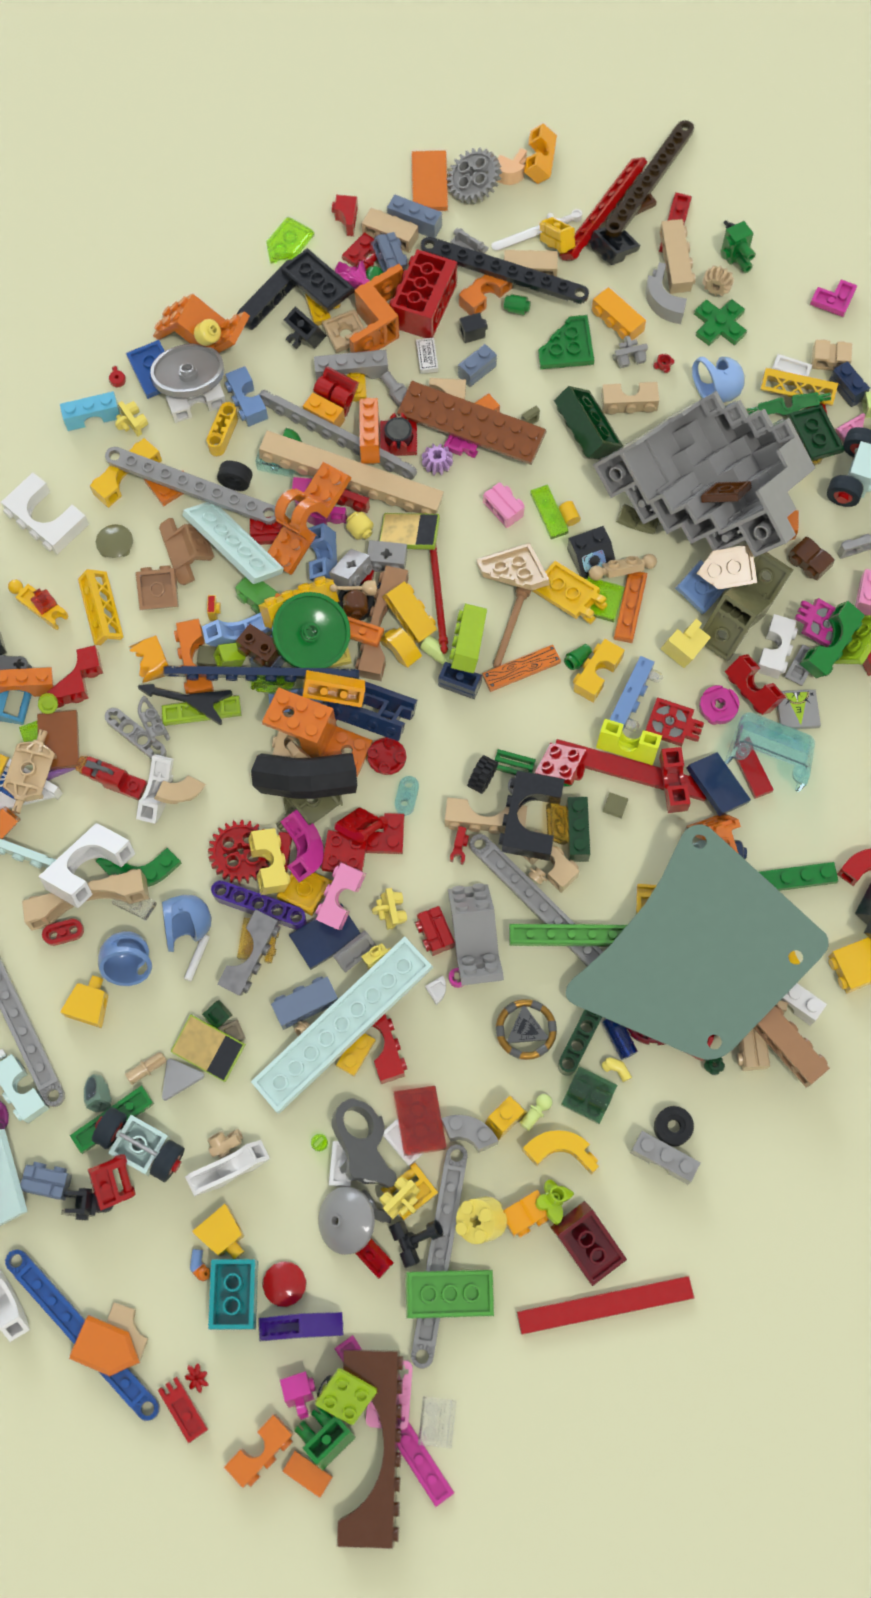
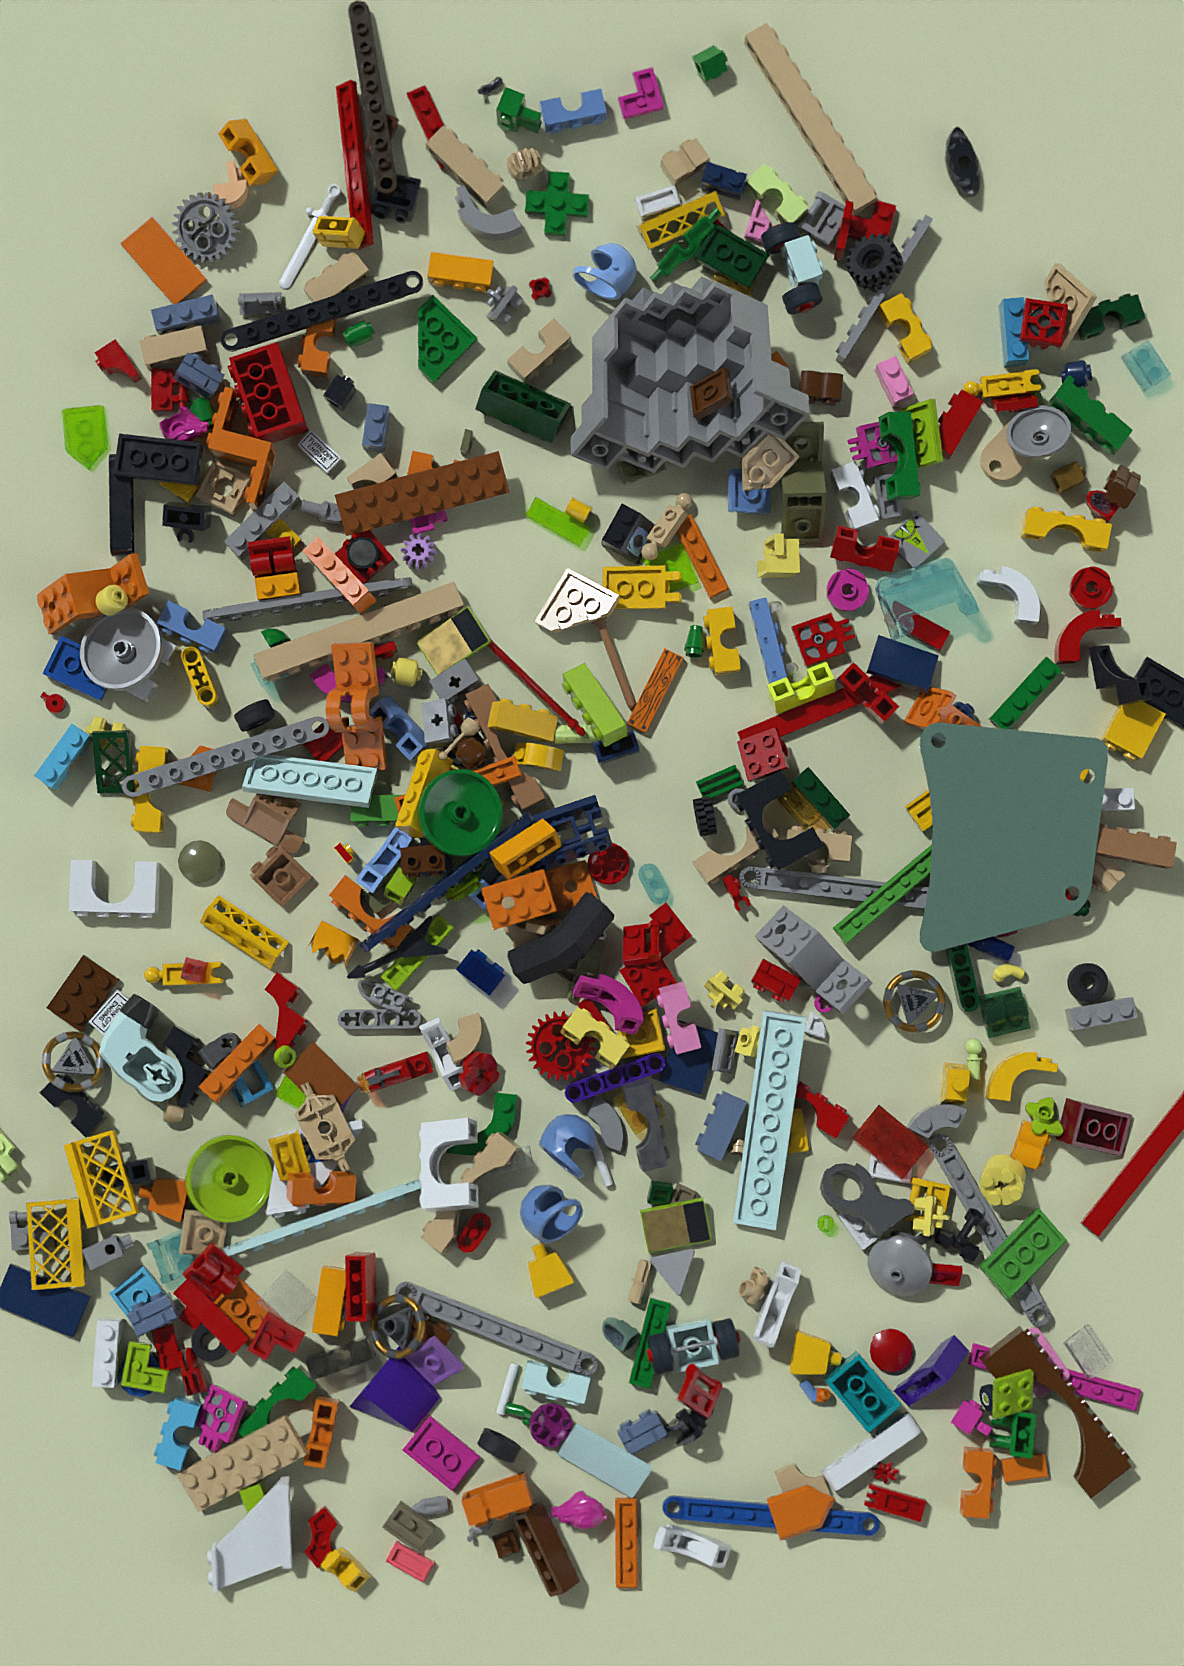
camera: 45 degrees left, 15 degrees up
(114, 422) = (99, 771): none -> dark green window
(161, 813) = (487, 1076): none -> red plate
(200, 1350) = (870, 1451): none -> white beam
(226, 935) = (608, 1122): none -> light grey tile
(232, 757) = (481, 972): none -> clear blue piece
(503, 504) = (514, 548): bright pink brick -> none
(615, 805) = (832, 750): olive tile -> none
(787, 282) = (557, 118): none -> medium blue arch
(851, 797) = (1023, 592): none -> white arch

